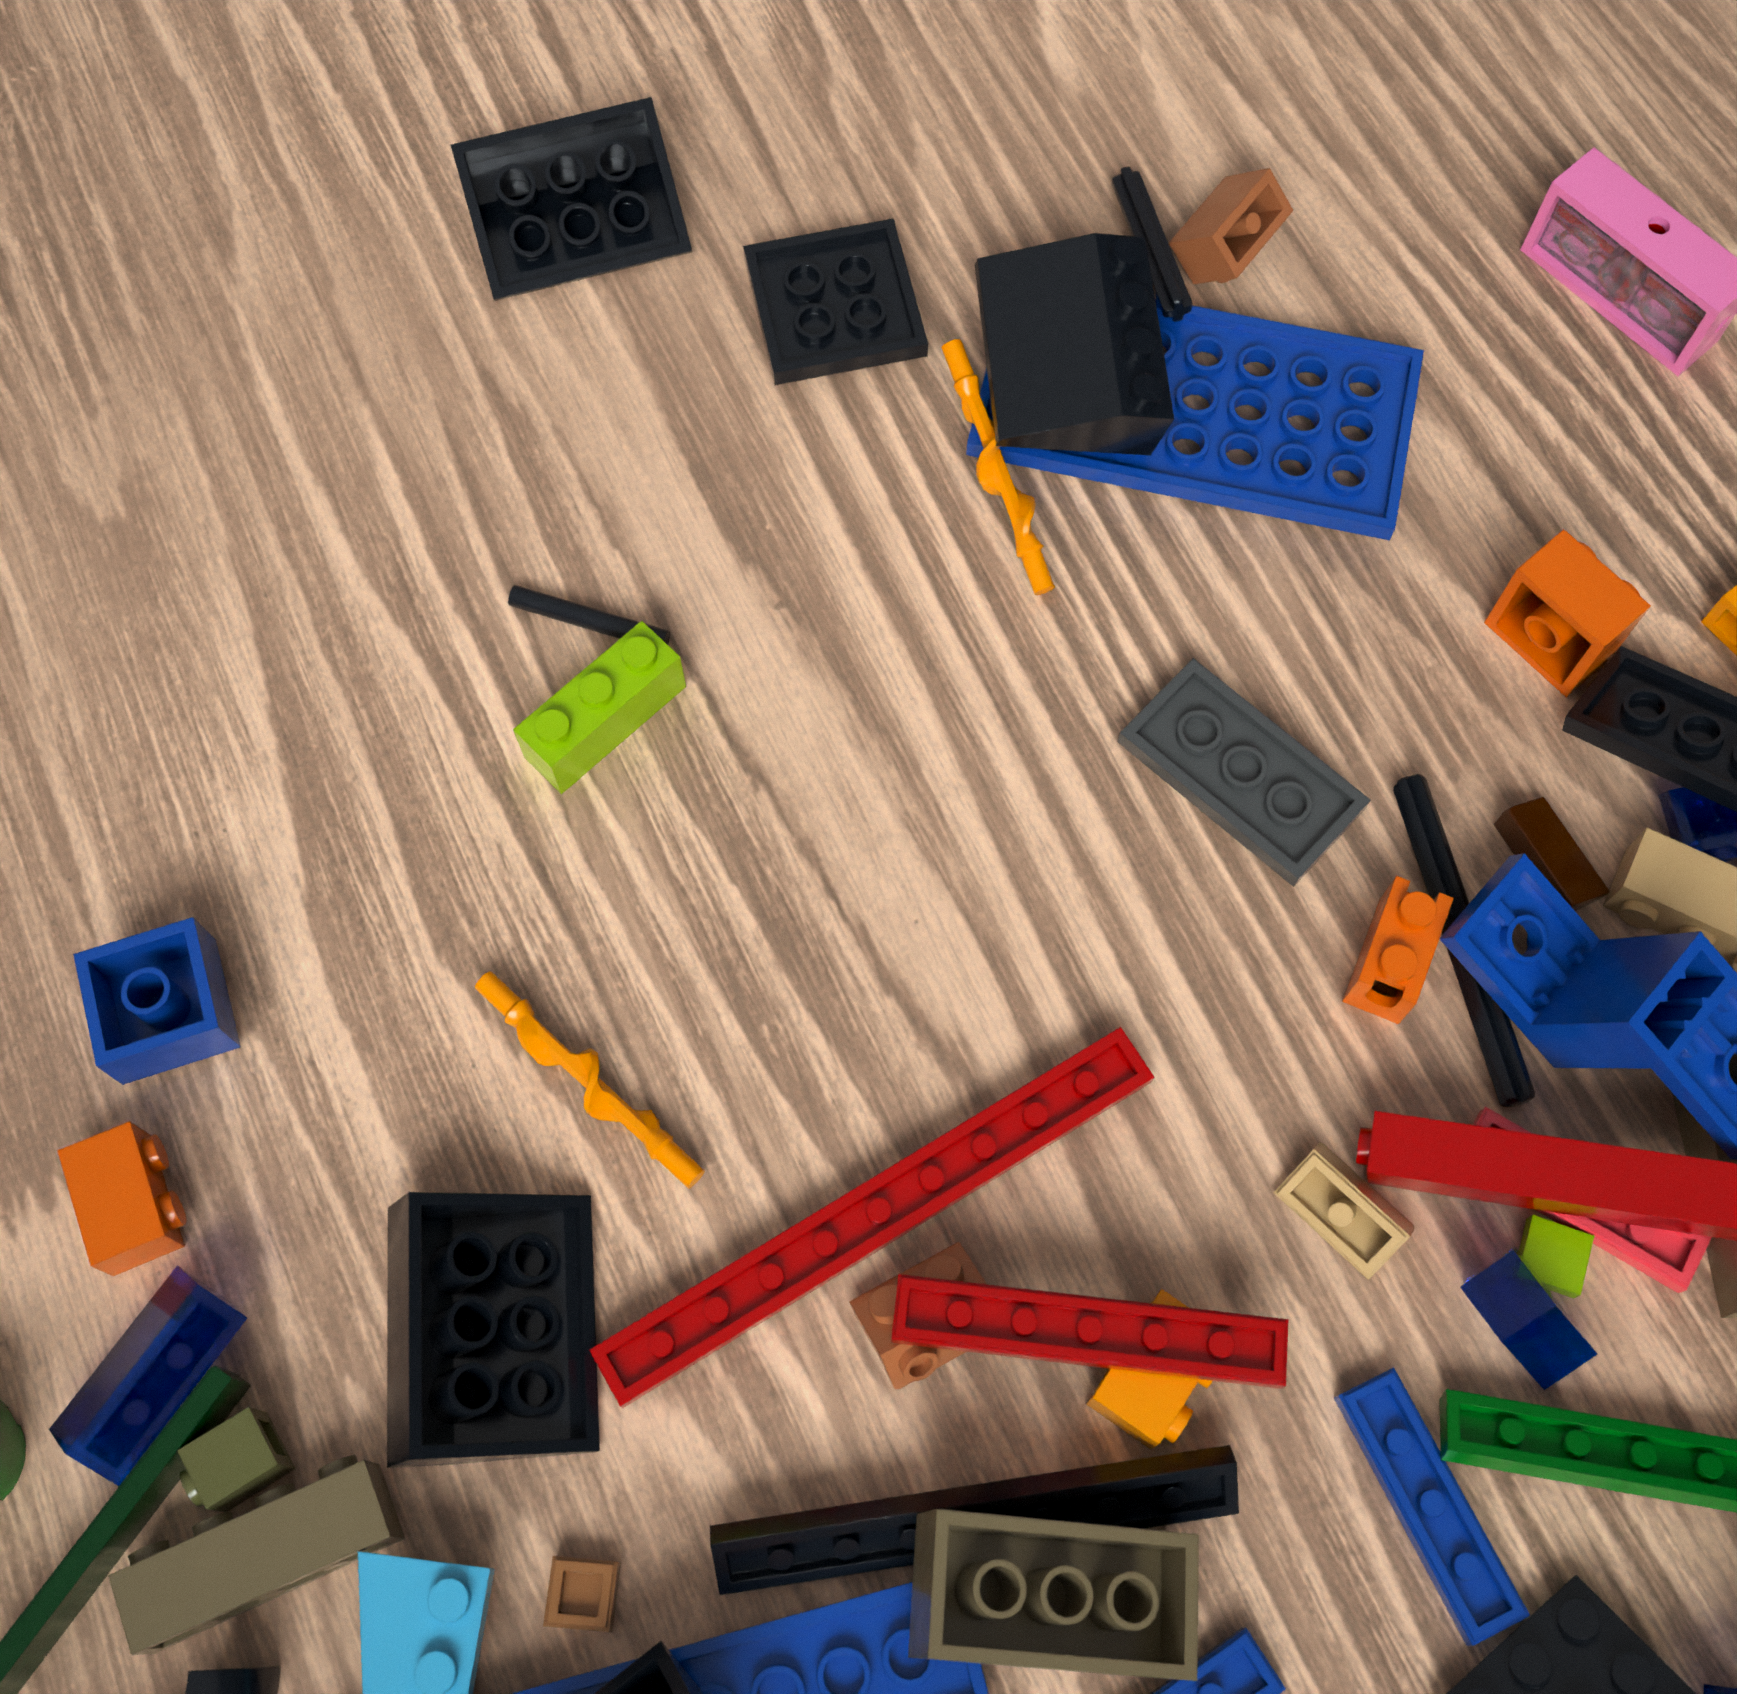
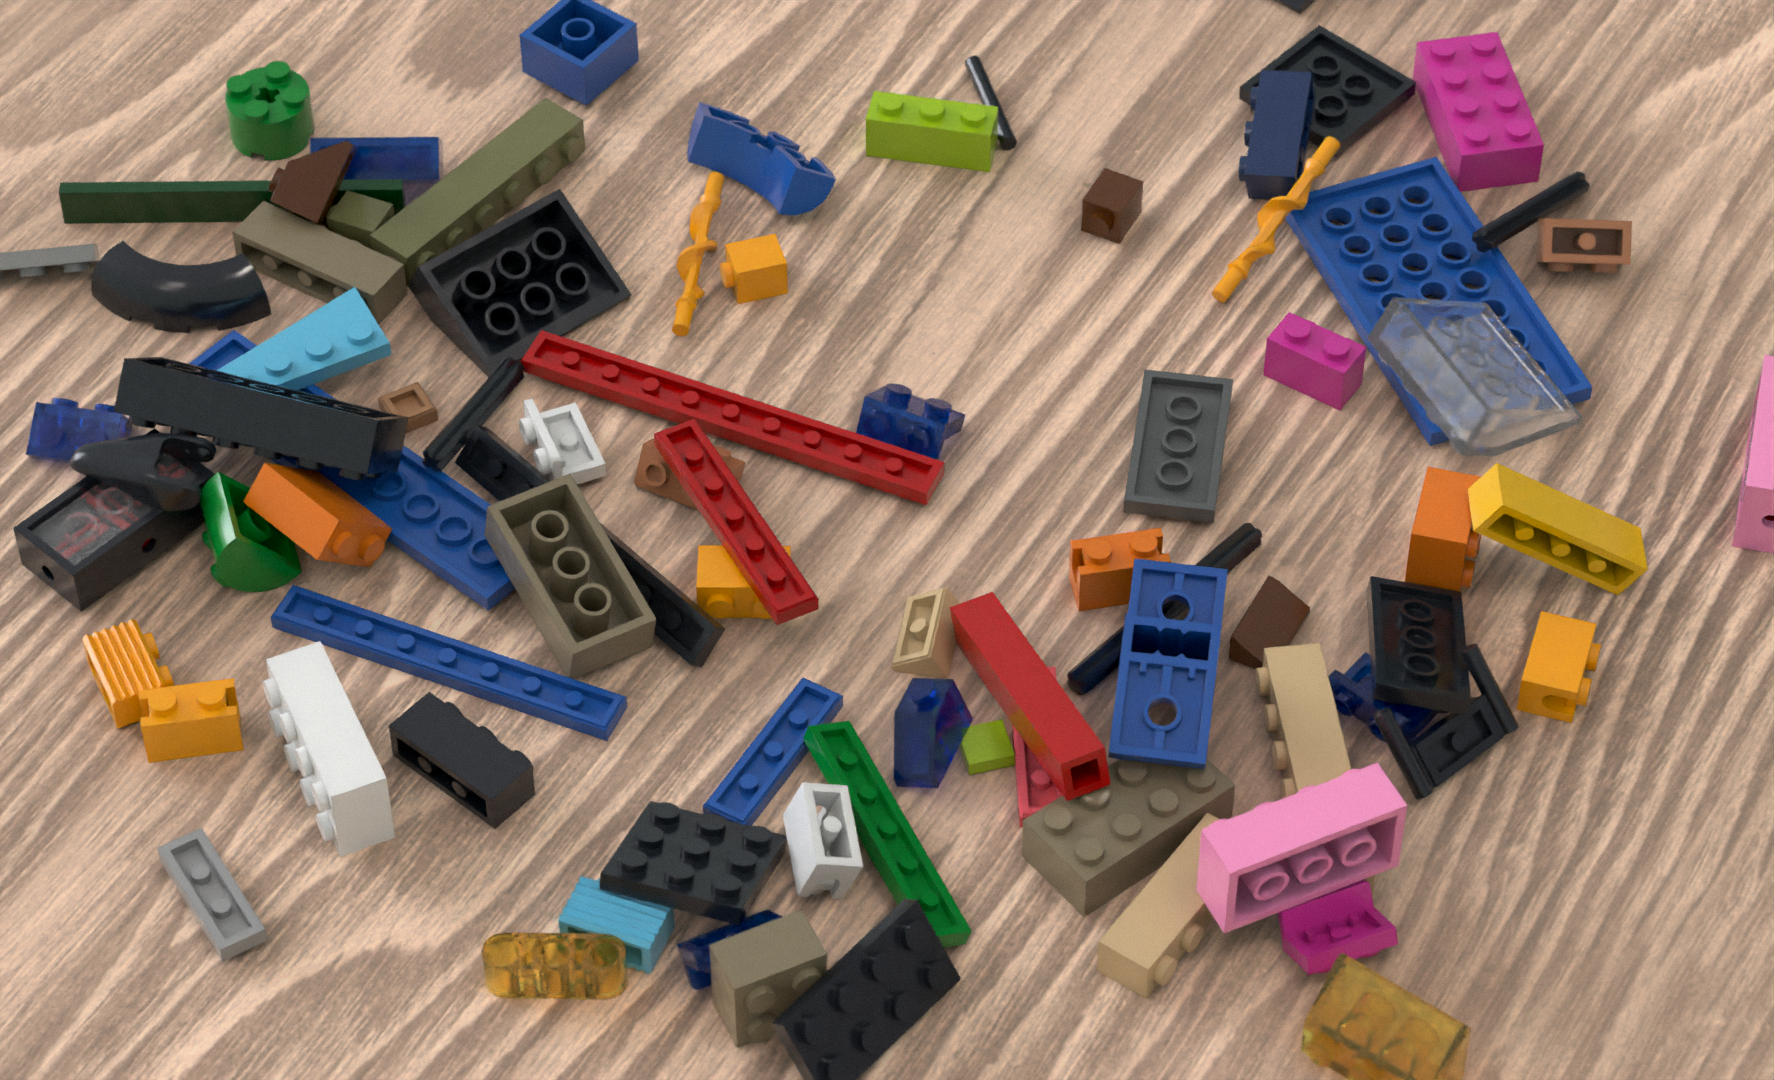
camera: 55 degrees right, 20 degrees down
(123, 1198) = (459, 102): orange brick -> none
(143, 1501) = (312, 181): none -> reddish brown slope
(295, 1278) = (483, 187): none -> olive brick
(501, 913) = (758, 161): none -> blue brick
(667, 1034) = (755, 269): none -> light orange brick
(671, 1529) = (473, 413): none -> black axle
(791, 1443) = (562, 443): none -> white bracket
(851, 605) = (1112, 205): none -> reddish brown brick
(884, 384) = (1278, 133): none -> dark blue brick
(971, 188) = (1477, 112): none -> dark pink brick
(1021, 1020) = (908, 421): none -> clear blue bracket
(1074, 346) = (1393, 199): black slope -> none
(1220, 564) = (1314, 361): none -> dark pink brick
(1366, 444) = (1470, 375): none -> clear slope
(1639, 1549) = (822, 846): none -> white brick
(1646, 510) = (1557, 529): none -> yellow brick

